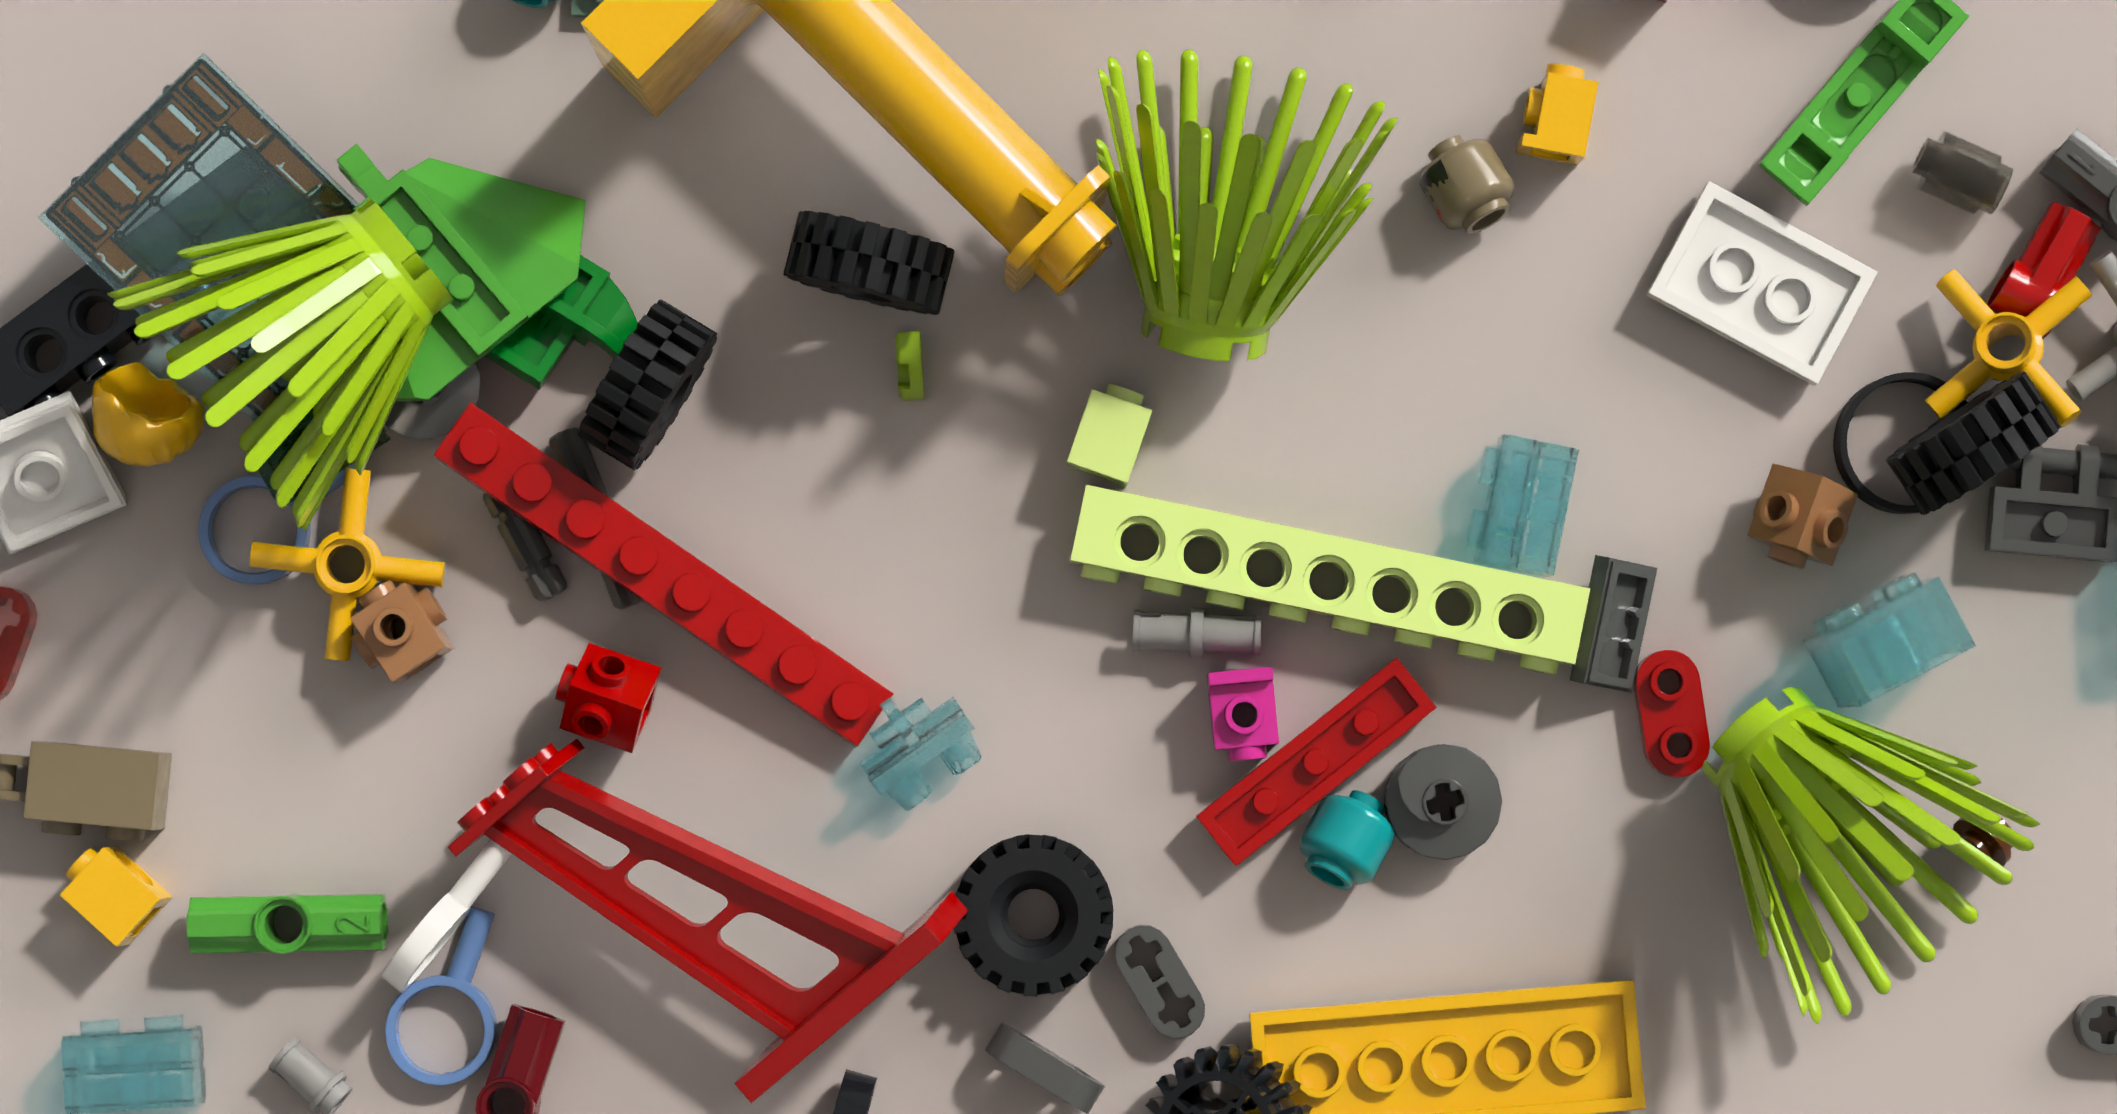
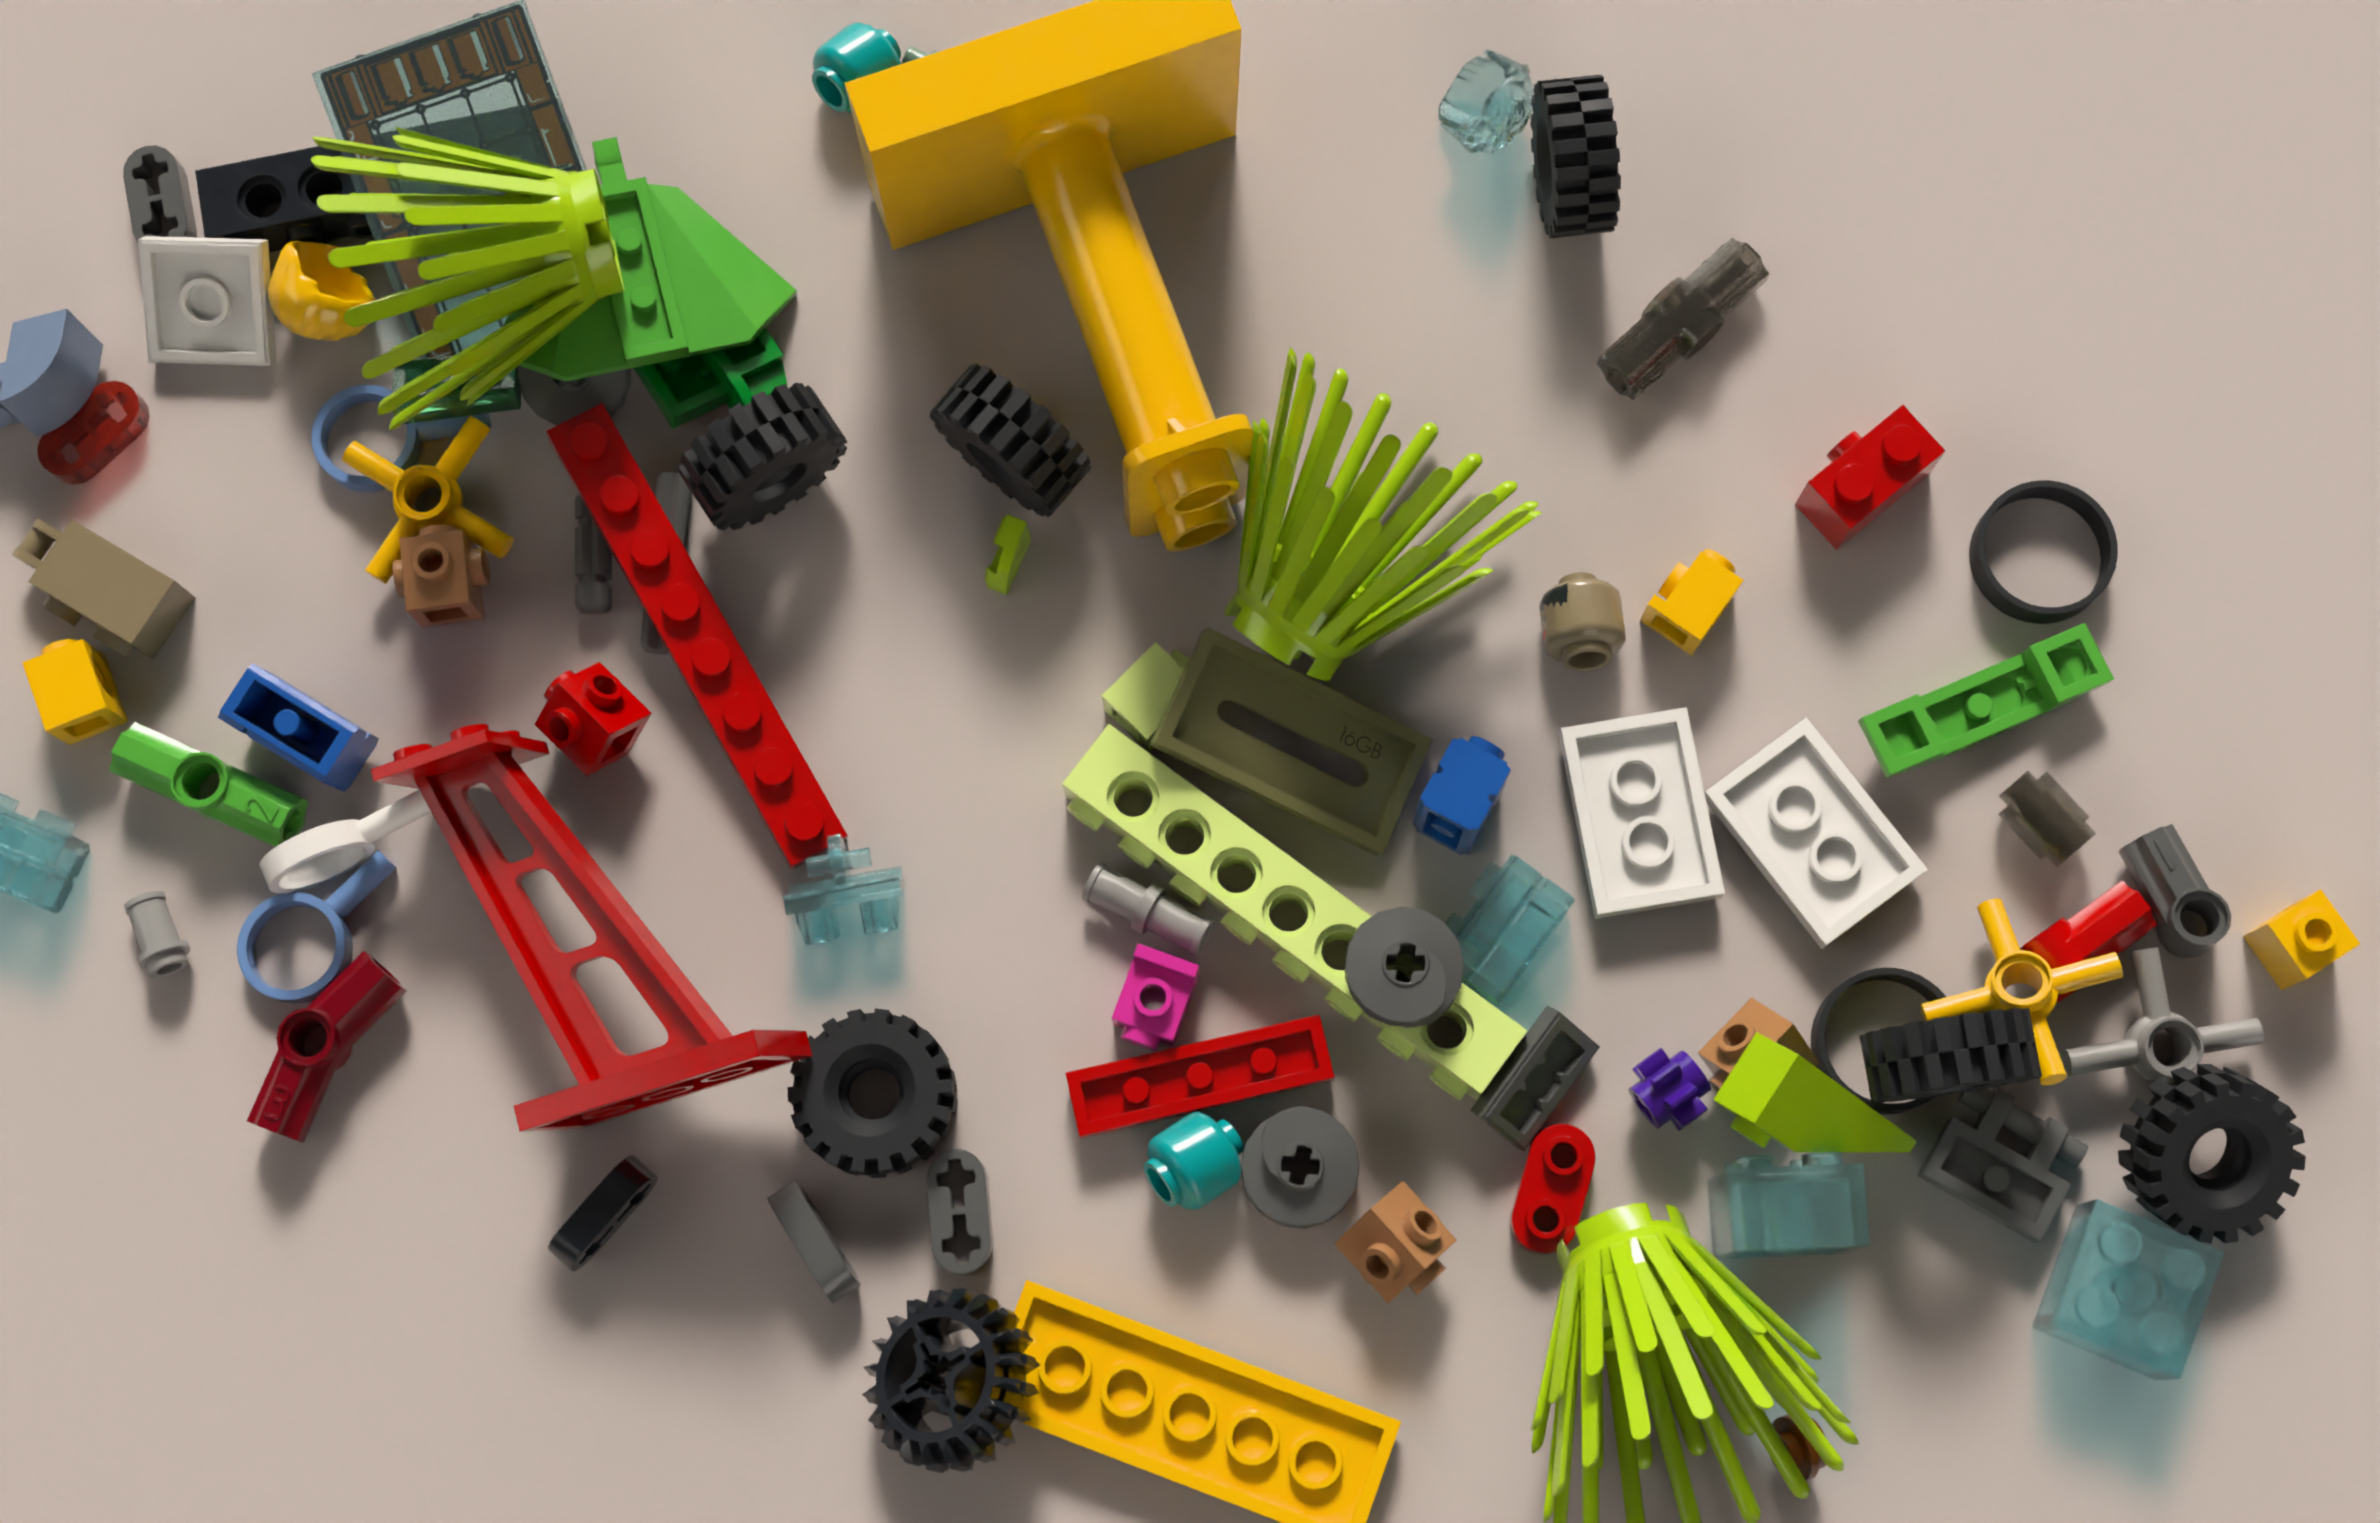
camera: 25 degrees right, 10 degrees down
(345, 833) = (298, 728): none -> blue brick
(1341, 385) = (1233, 672): none -> olive piece
(1435, 400) = (1462, 793): none -> blue brick
(1488, 602) = (1378, 945): none -> dark grey piece
(1560, 829) = (1397, 1244): none -> medium nougat brick
(1598, 337) = (1641, 813): none -> white plate
(1736, 578) = (1669, 1089): none -> dark purple gear
(1863, 549) = (1800, 1106): none -> lime slope

